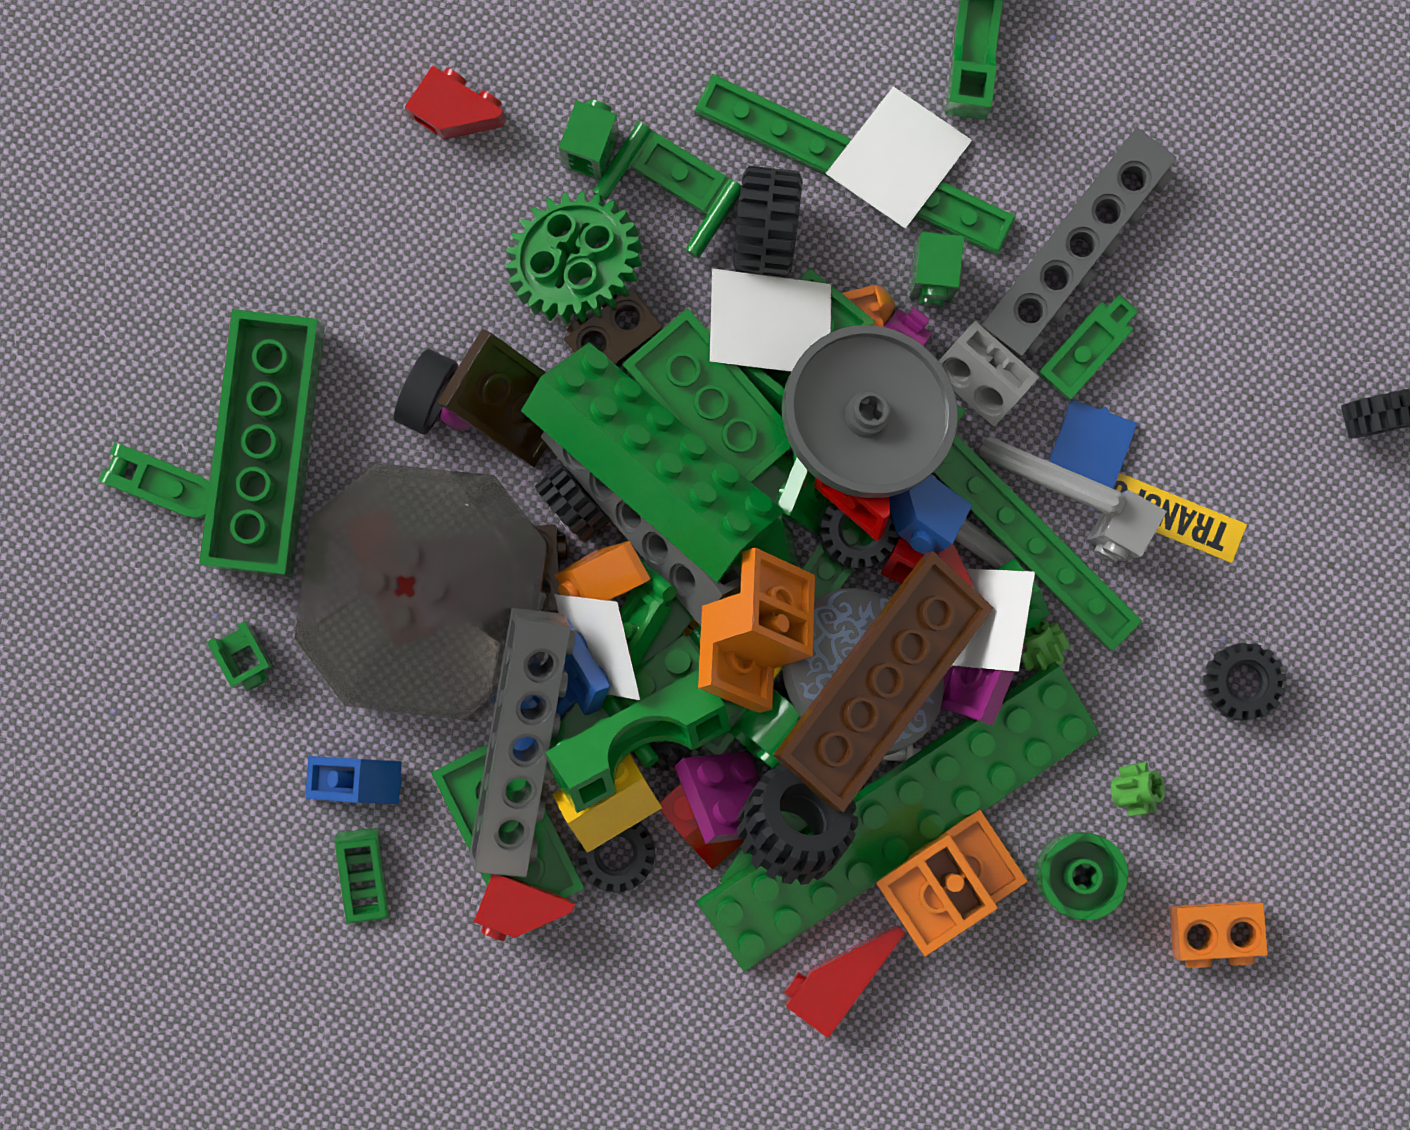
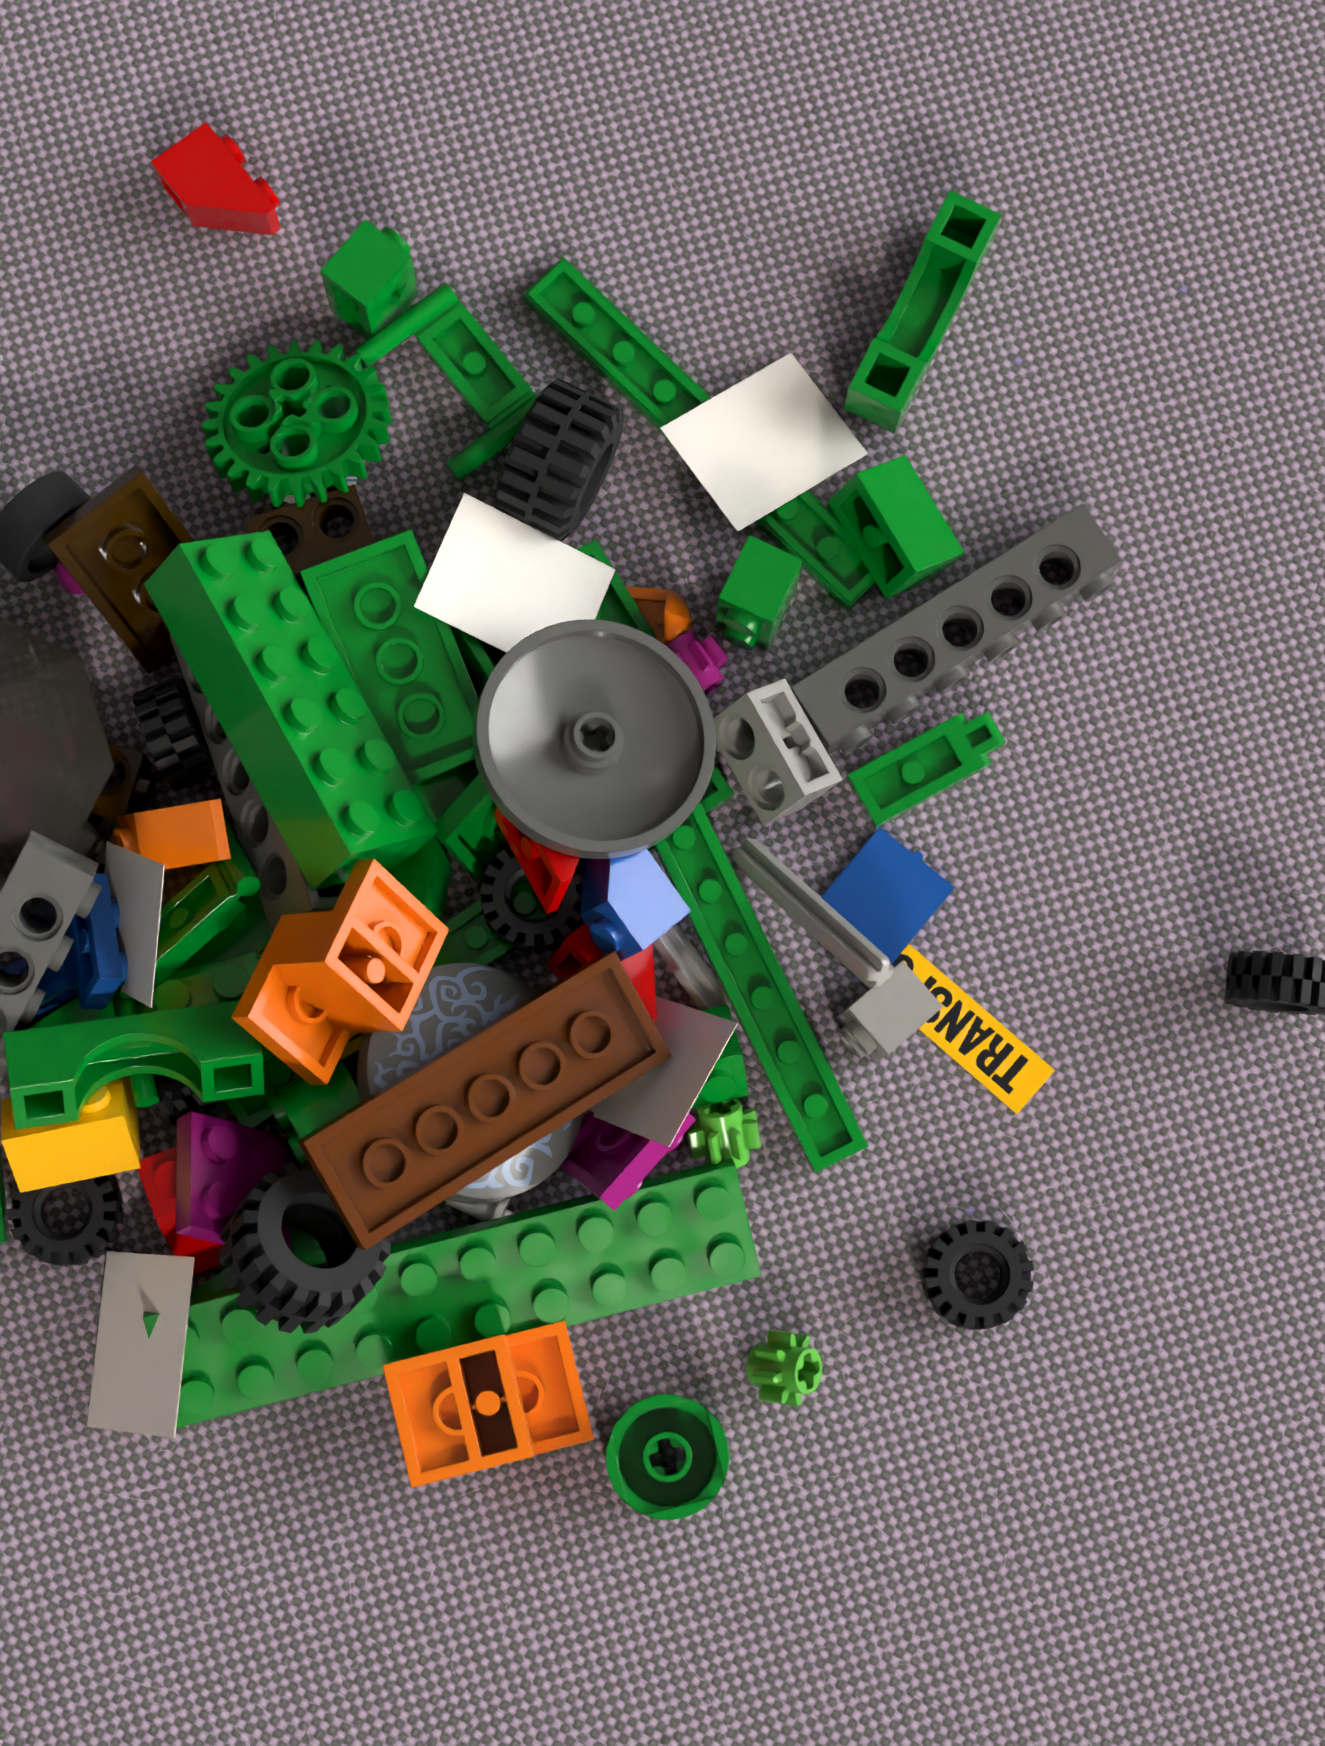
camera: 15 degrees right, 5 degrees down
(703, 949) = (135, 1375): none -> white sticker
(835, 984) = (283, 1489): red slope -> none
(1012, 187) = (895, 526): none -> green brick
(1218, 922) = (829, 1584): orange brick -> none

